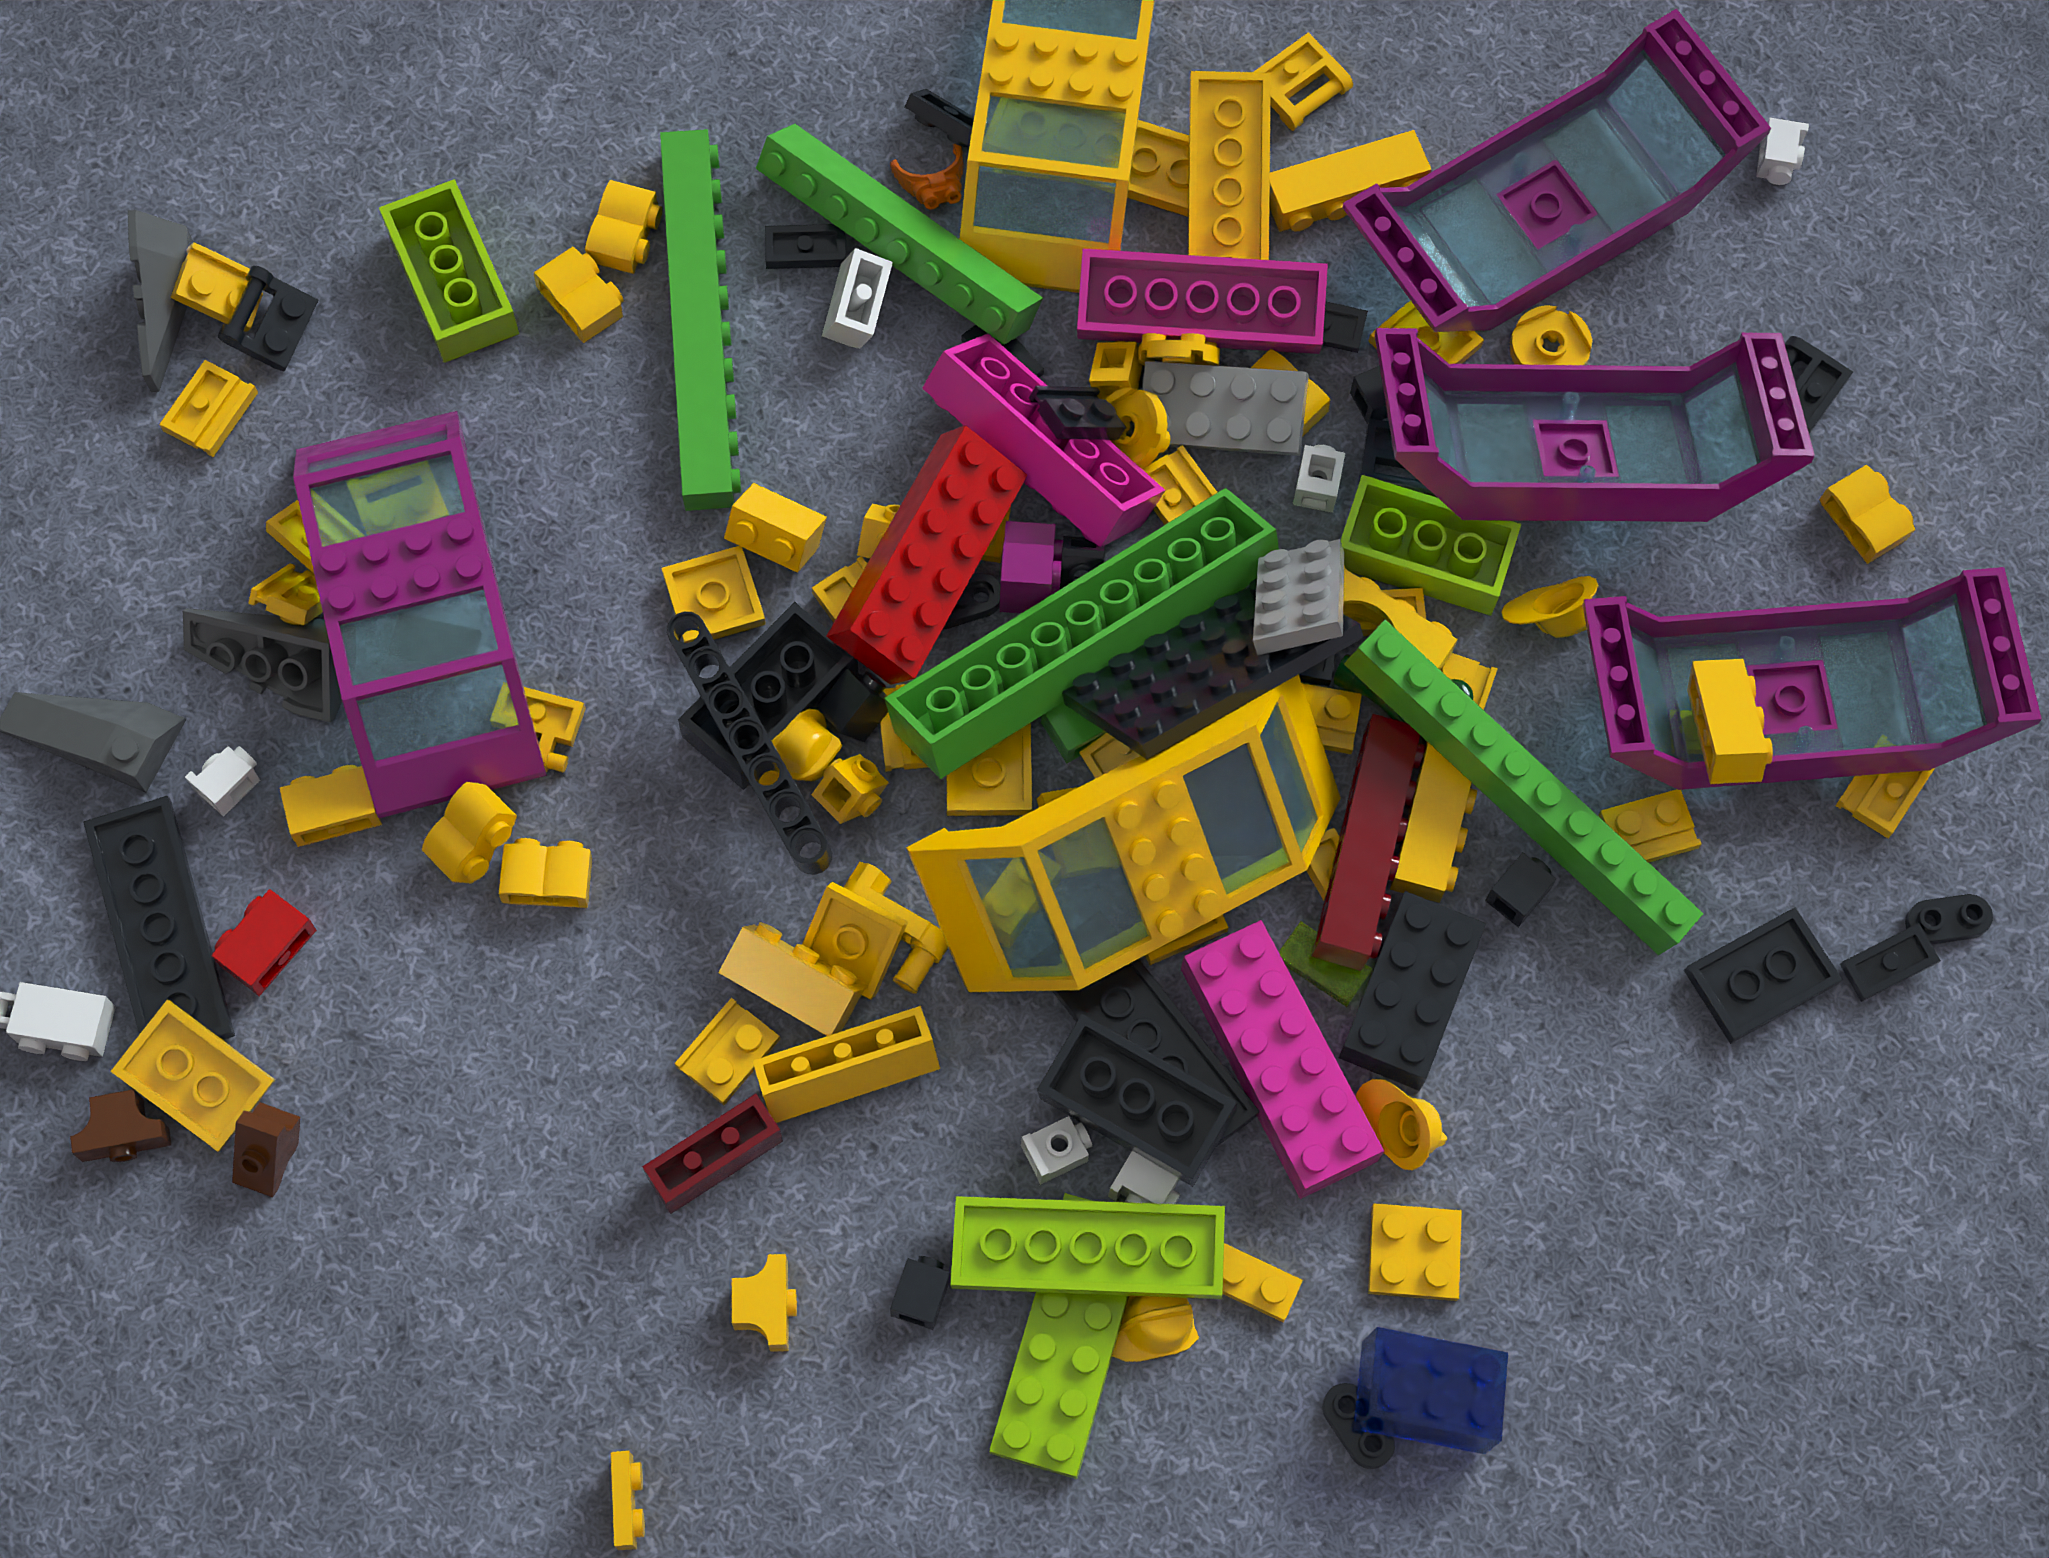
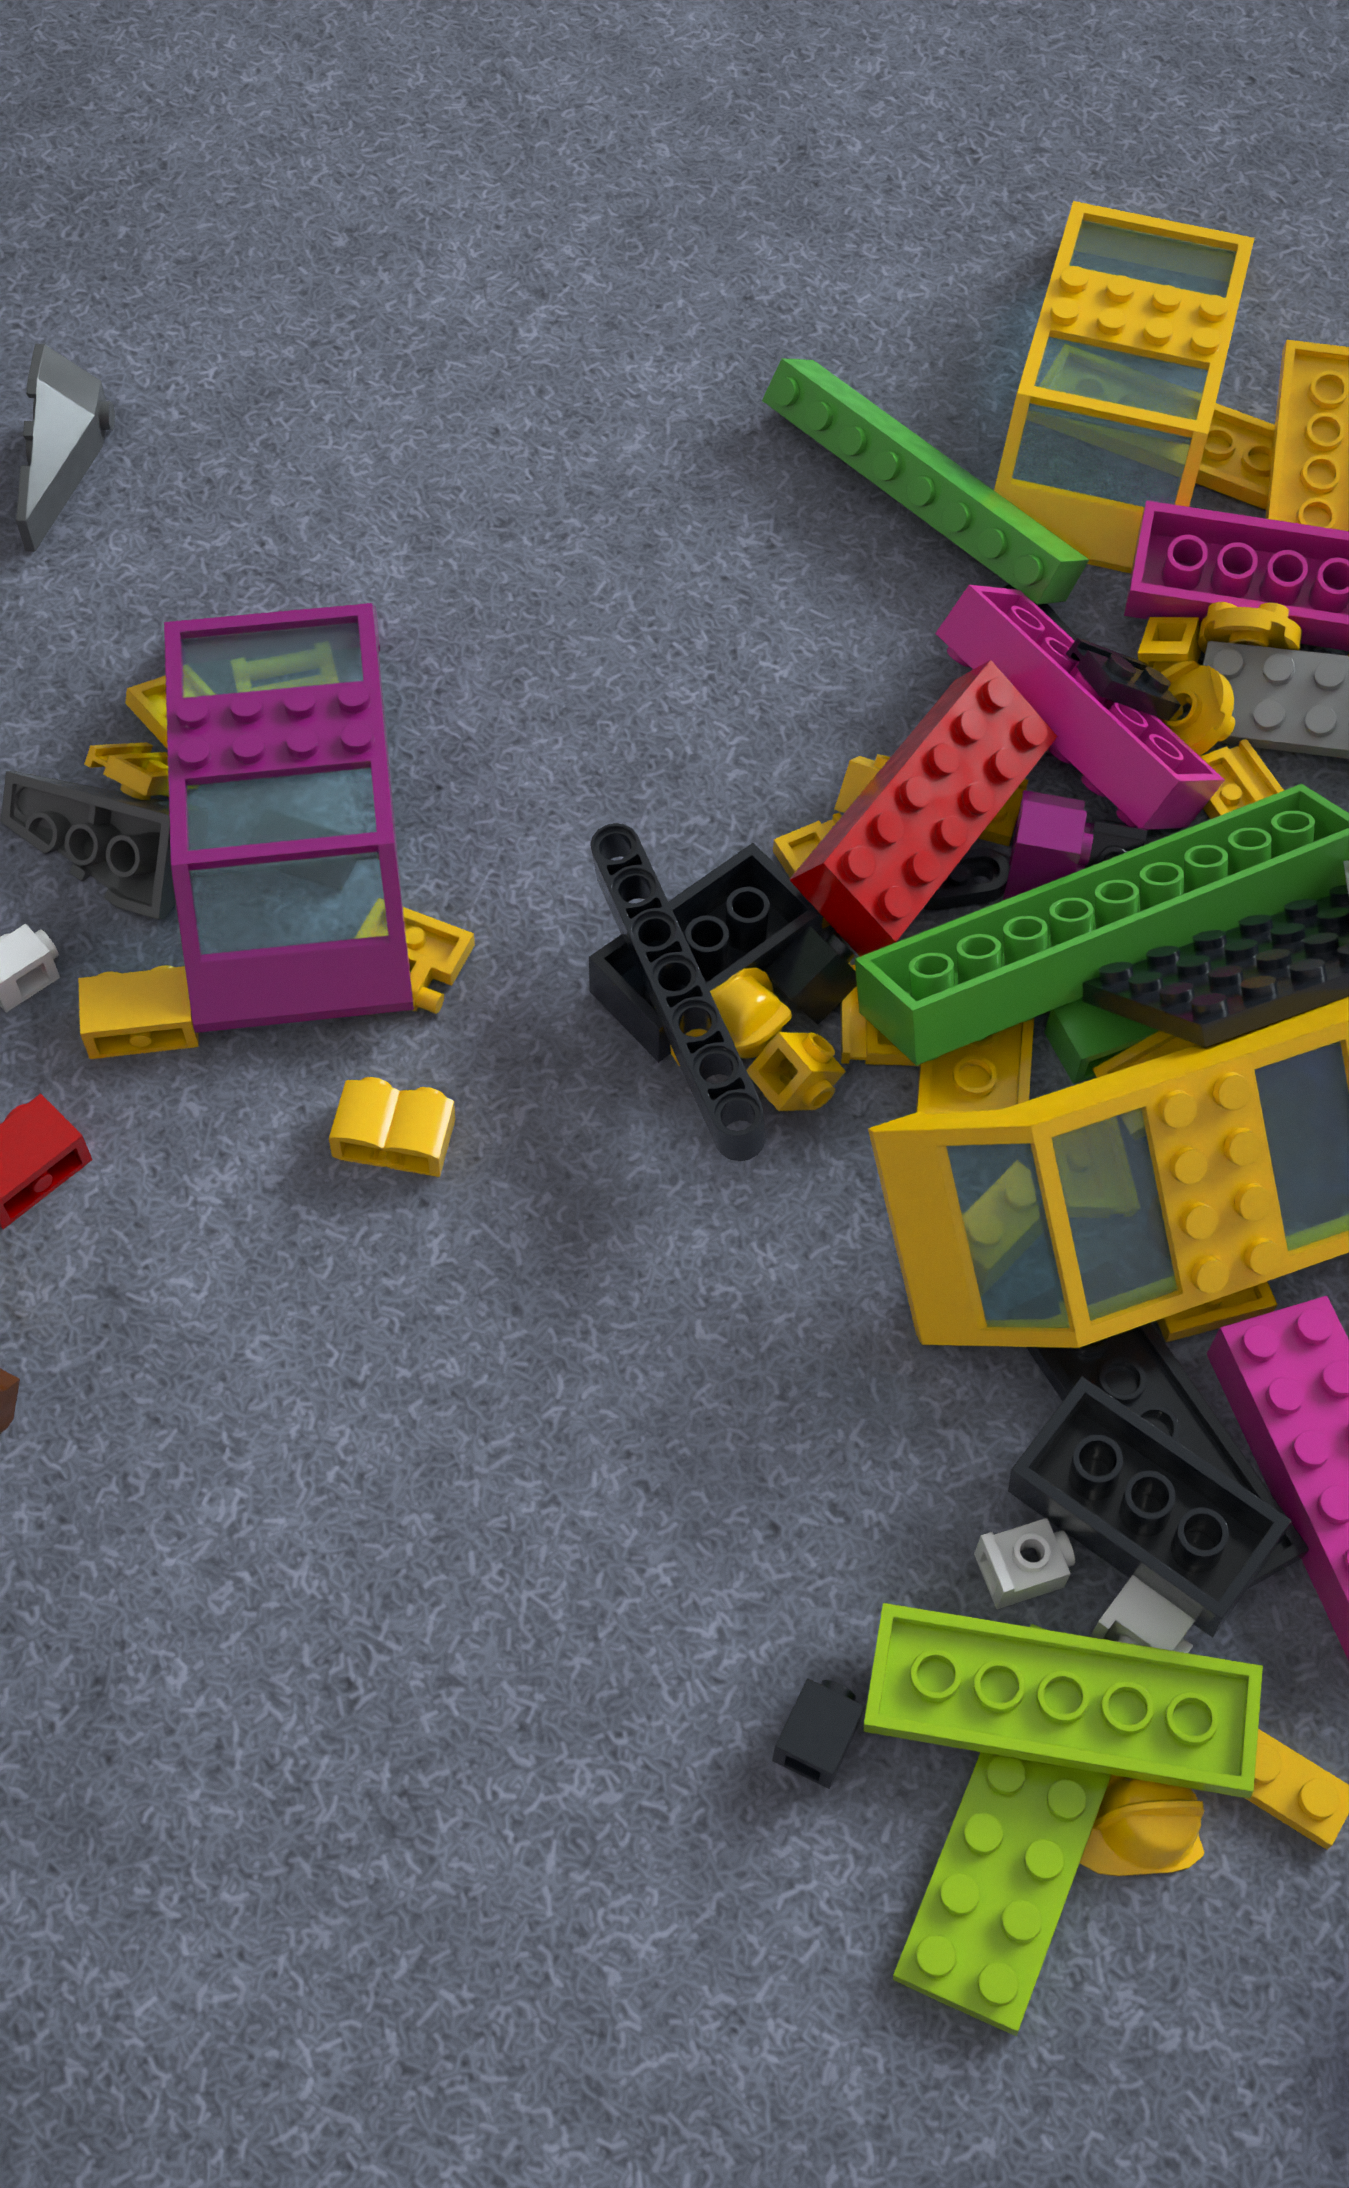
camera: 10 degrees right, 10 degrees down
(208, 408) = (87, 570): yellow plate -> none
(212, 284) = (125, 448): yellow plate -> none
(280, 326) = (188, 496): black plate -> none
(449, 270) = (393, 460): lime brick -> none
(469, 832) = (304, 1061): yellow brick -> none
(579, 293) = (539, 503): yellow brick -> none
(623, 226) = (599, 443): yellow brick -> none
(627, 1520) = (362, 1998): yellow plate -> none
(697, 321) = (673, 551): bright green brick -> none
(713, 1153) = (557, 1501): dark red brick -> none
(717, 590) = (667, 826): yellow plate -> none
(725, 1050) = (594, 1377): yellow plate -> none
(765, 1302) = (600, 1715): yellow brick -> none
(775, 527) = (737, 767): yellow brick -> none
(792, 978) = (693, 1292): yellow brick -> none
(804, 246) = (809, 486): black plate -> none
(846, 1064) = (752, 1410): yellow brick -> none
(855, 936) = (776, 1254): yellow plate -> none
(857, 298) = (865, 539): white brick -> none
(924, 938) = (801, 1209): yellow beam -> none
(935, 187) = (965, 444): orange helmet -> none
(937, 112) = (972, 370): black plate -> none

